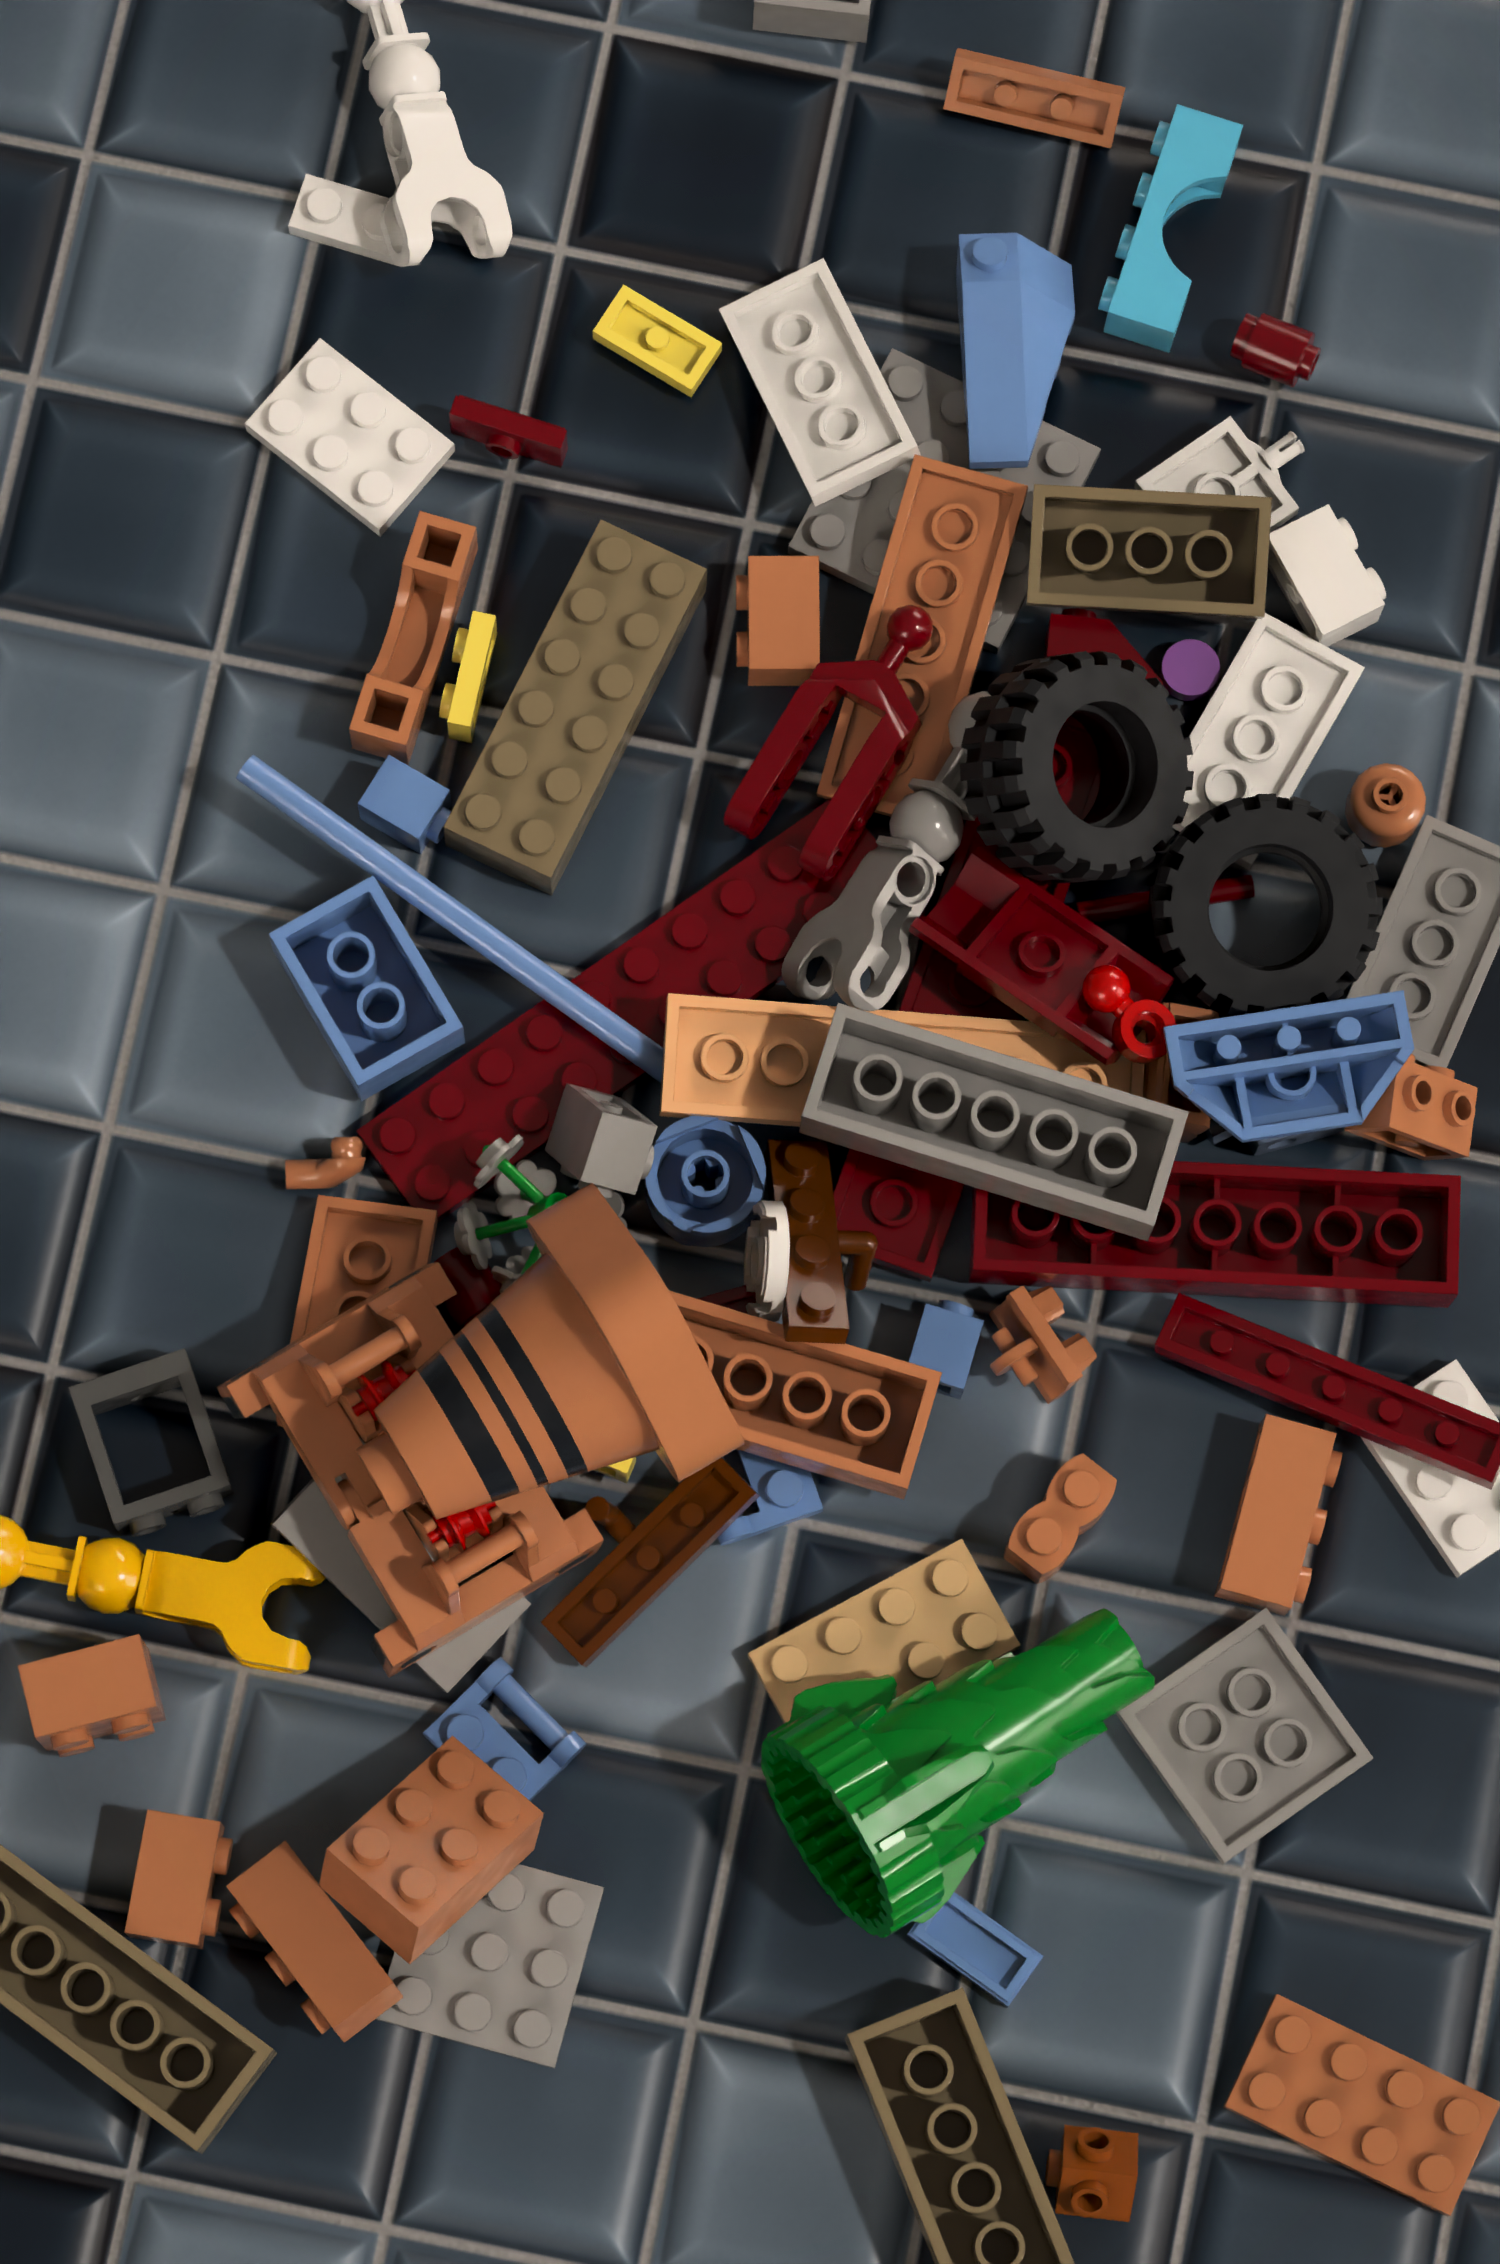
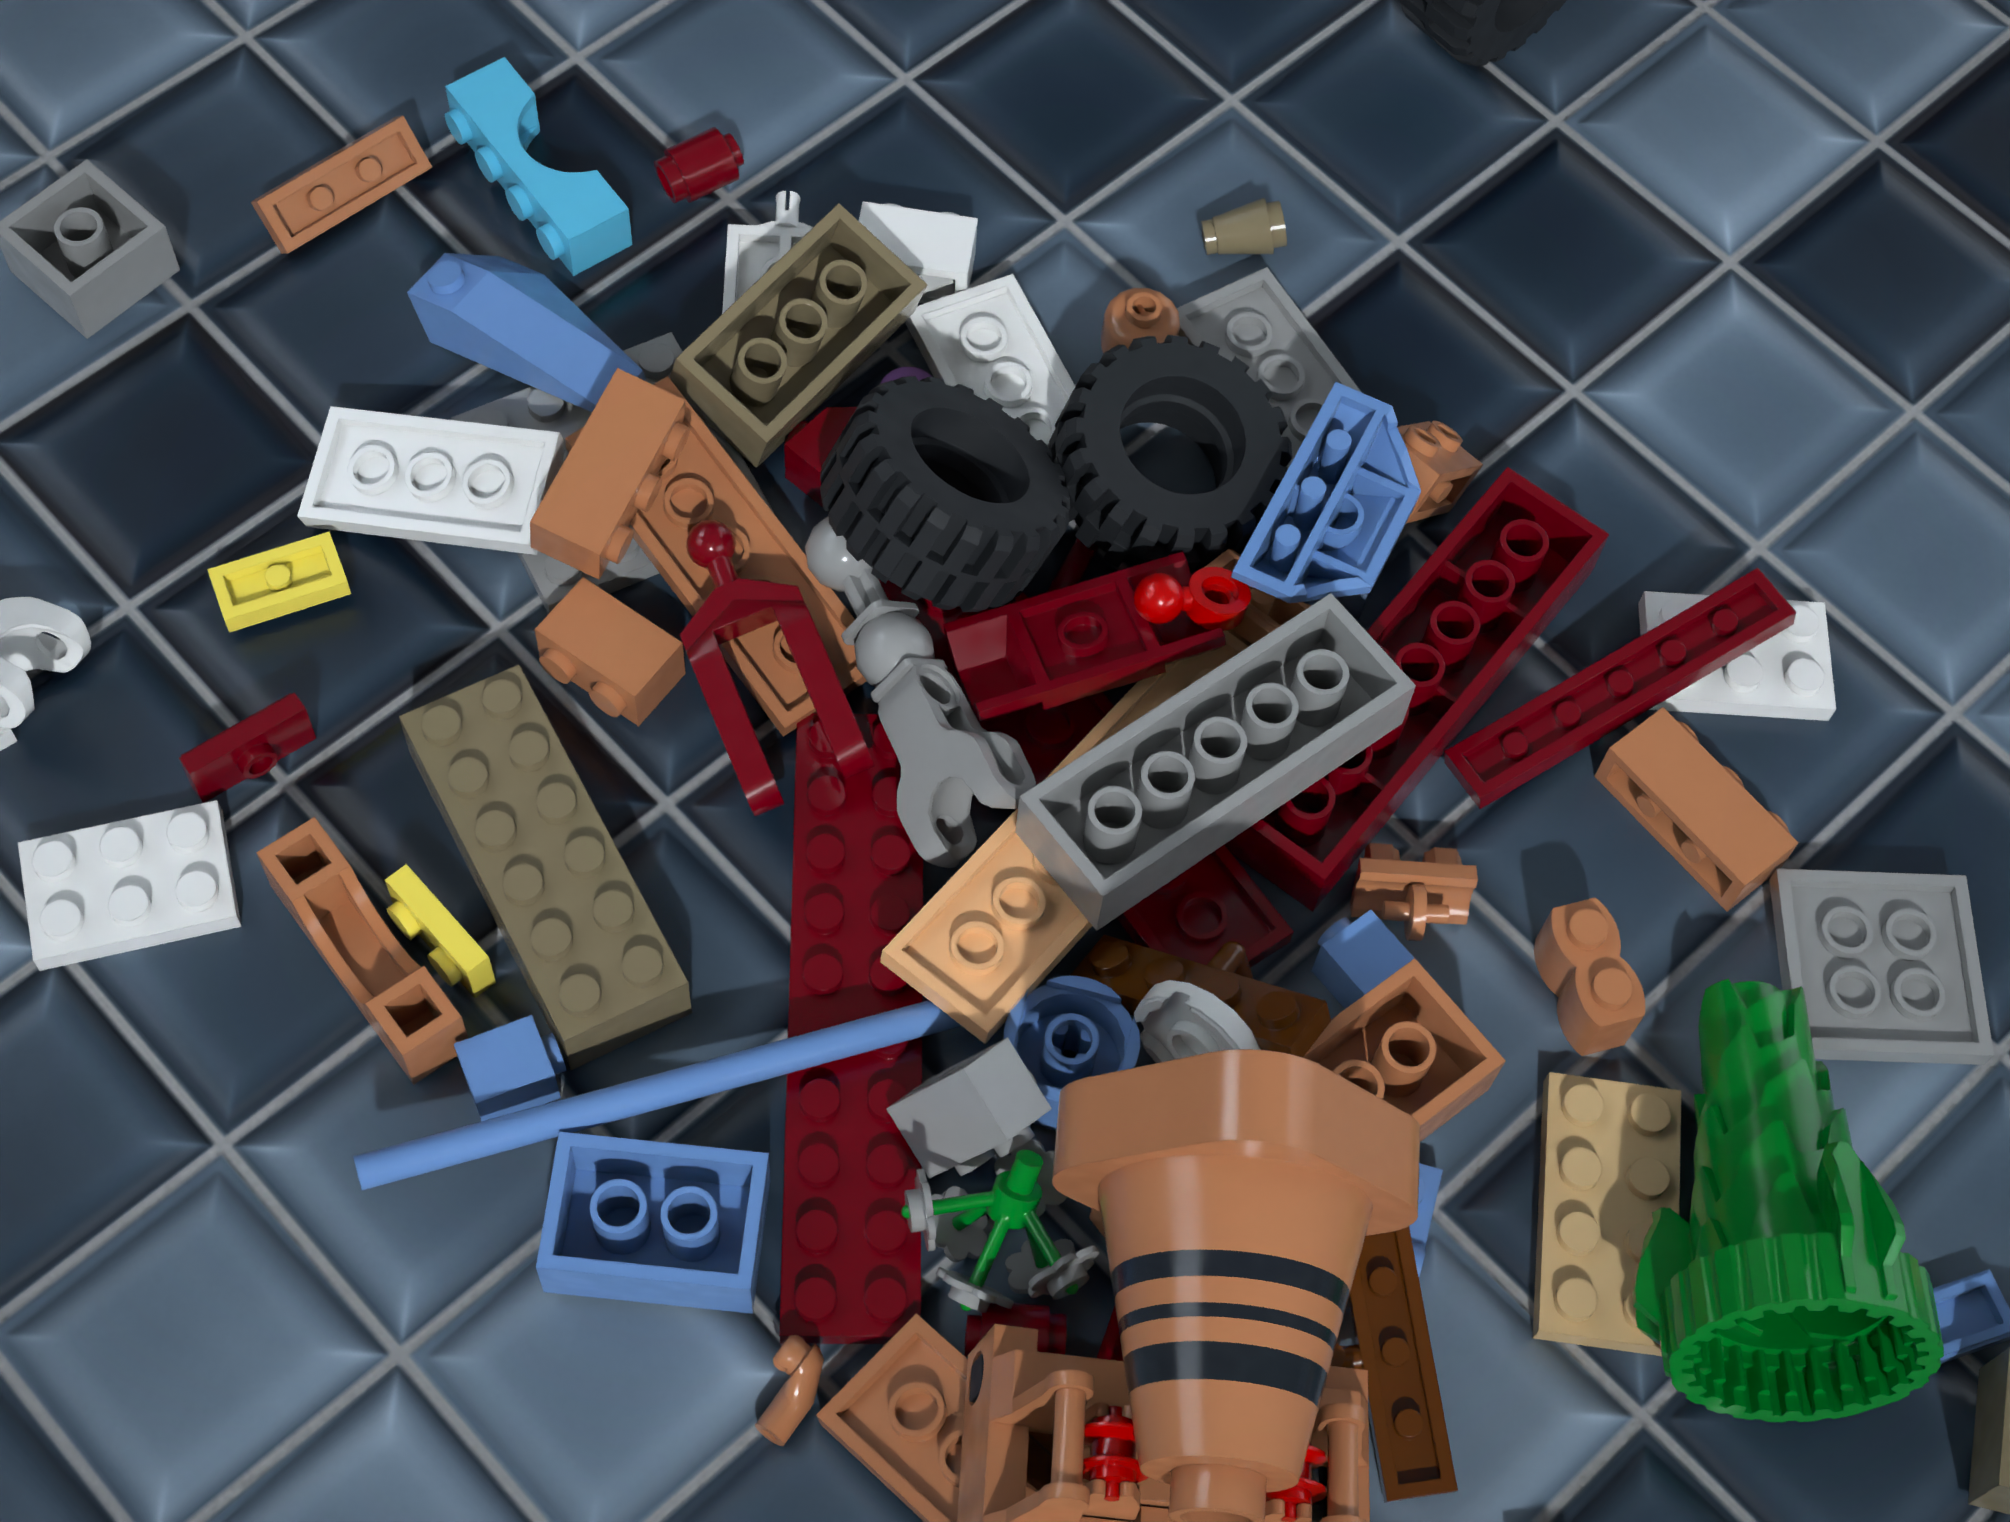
camera: 55 degrees left, 15 degrees down
(901, 513) = (610, 475): none -> nougat brick

